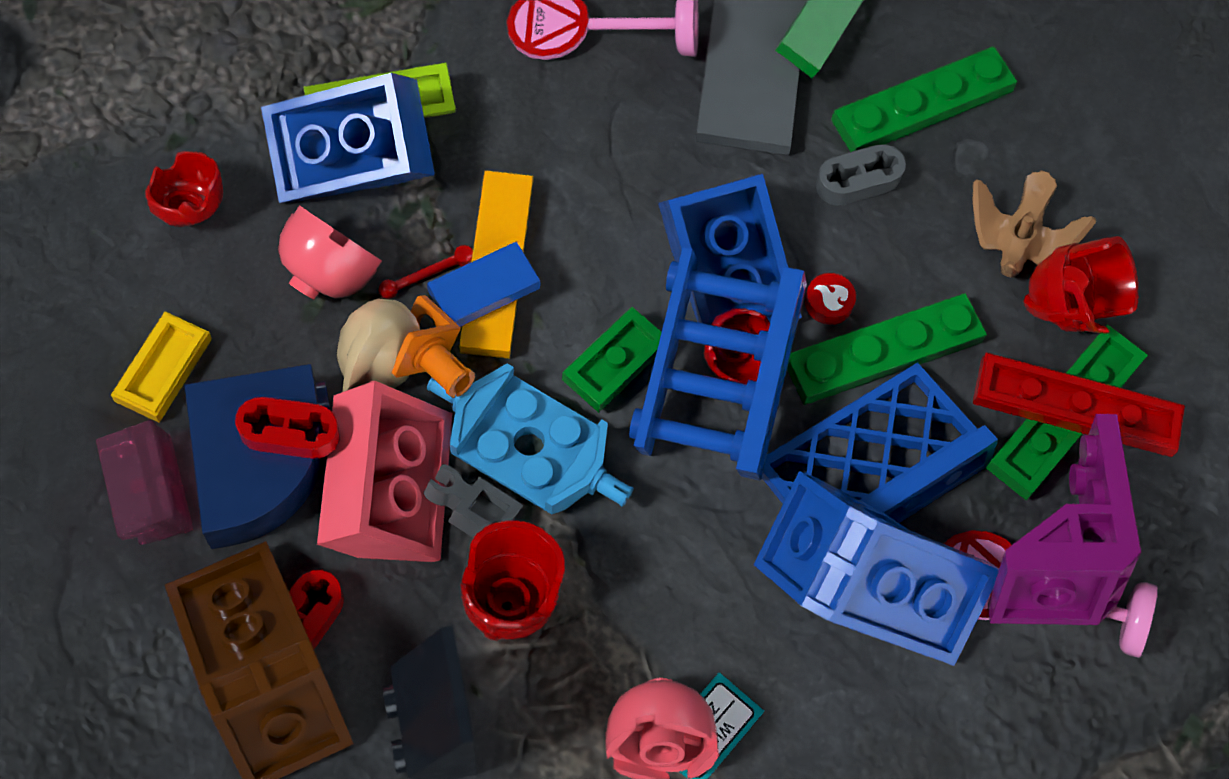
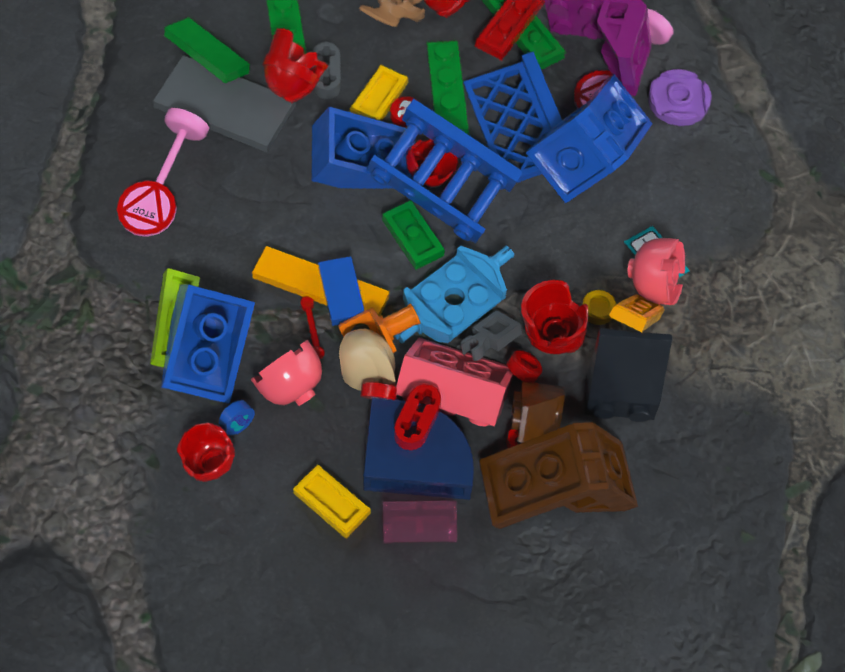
camera: 70 degrees left, 5 degrees down
(252, 212) = (236, 417): none -> blue tile
(322, 370) = (378, 390): none -> red tile
(339, 592) = (537, 410): none -> reddish brown slope
(436, 567) = (524, 366): none -> red tile
(536, 694) = (637, 312): none -> light orange tile
(581, 657) = (600, 306): none -> yellow tile
(823, 110) = (288, 68): none -> red helmet
(855, 255) = (379, 94): none -> yellow tile
(1027, 700) = (679, 97): none -> medium lavender tile

